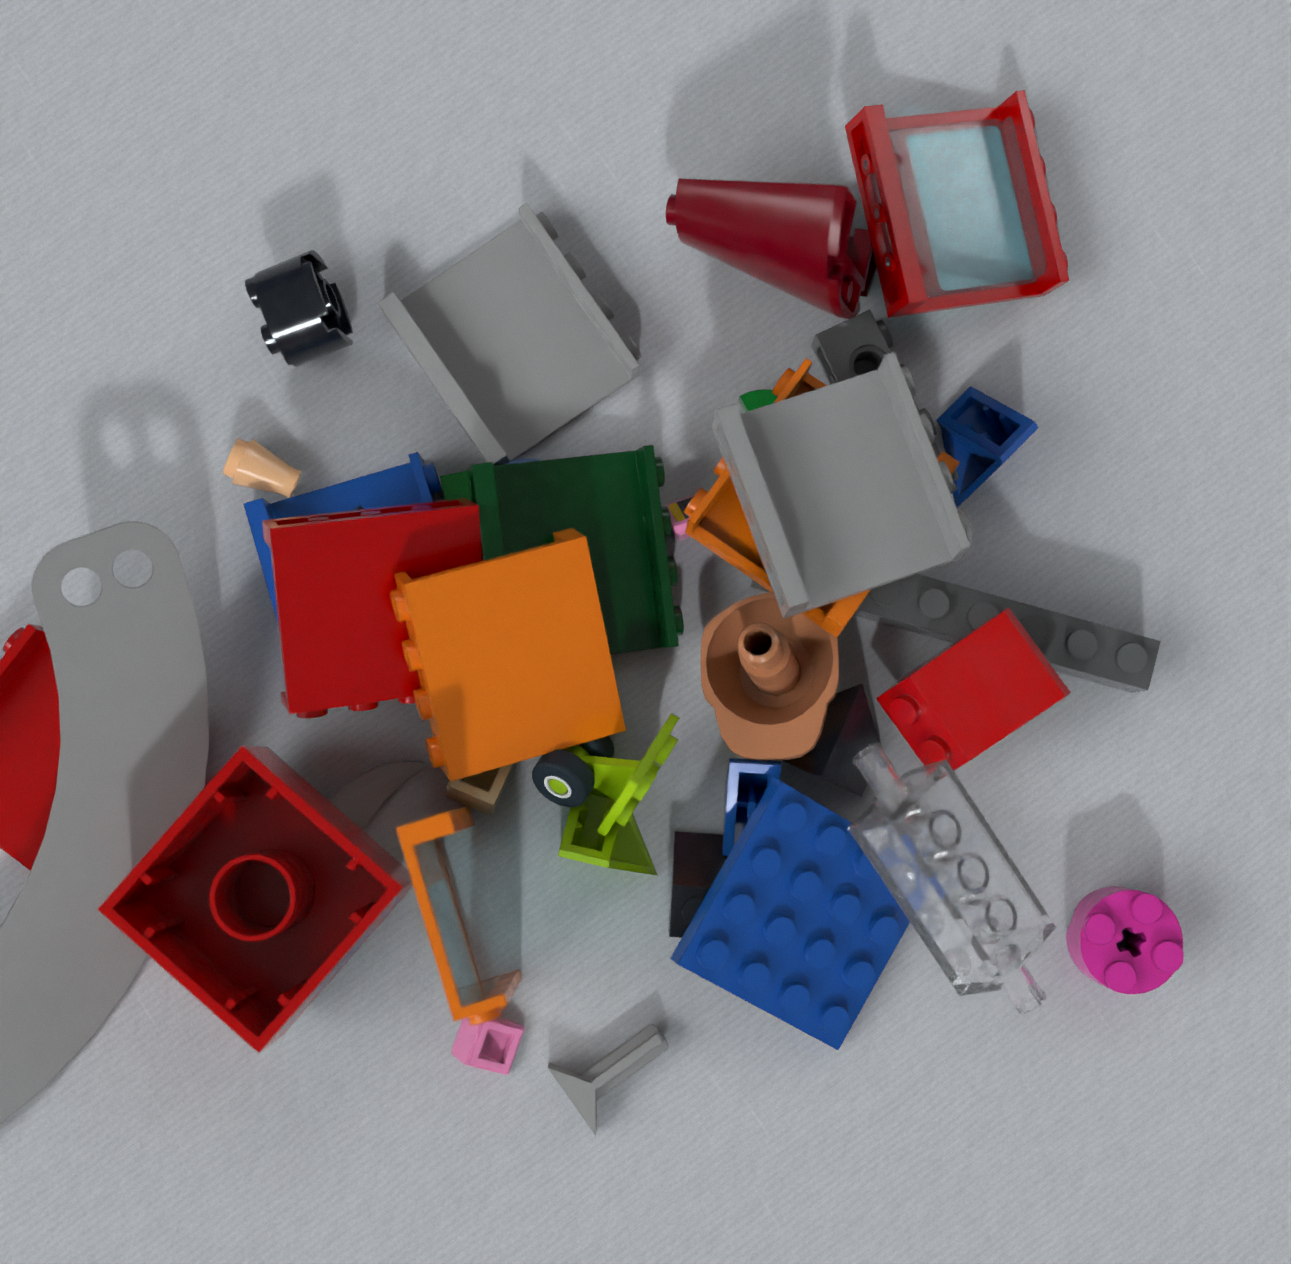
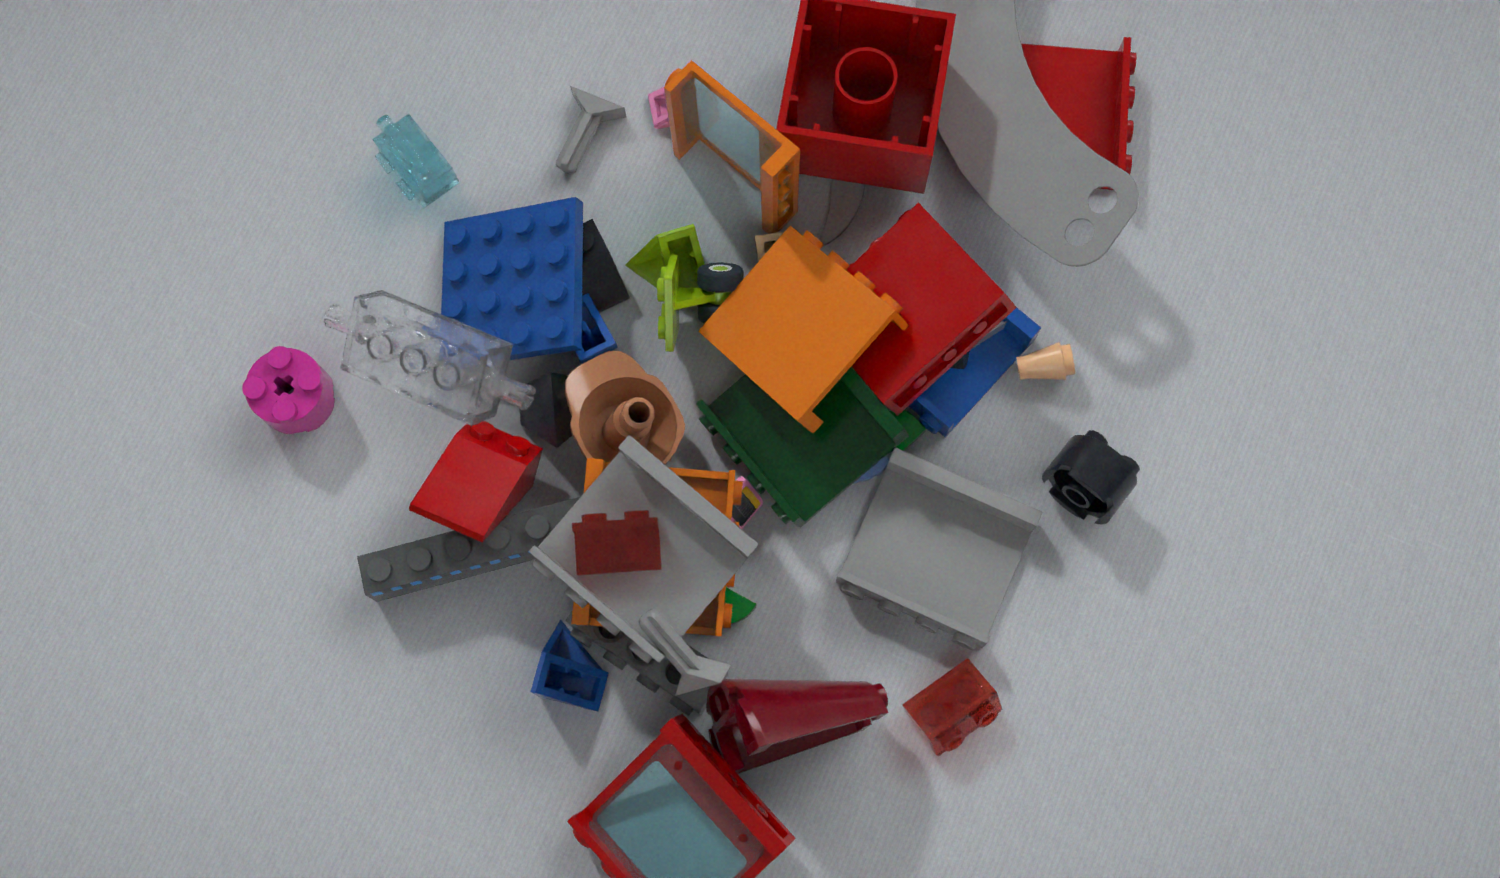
camera: 155 degrees right, 10 degrees down
(599, 170) = (954, 707): none -> clear red bracket
(833, 1150) = (414, 159): none -> clear light blue brick
(857, 338) = (695, 670): none -> light grey piece
(866, 507) = (617, 544): none -> clear red bracket

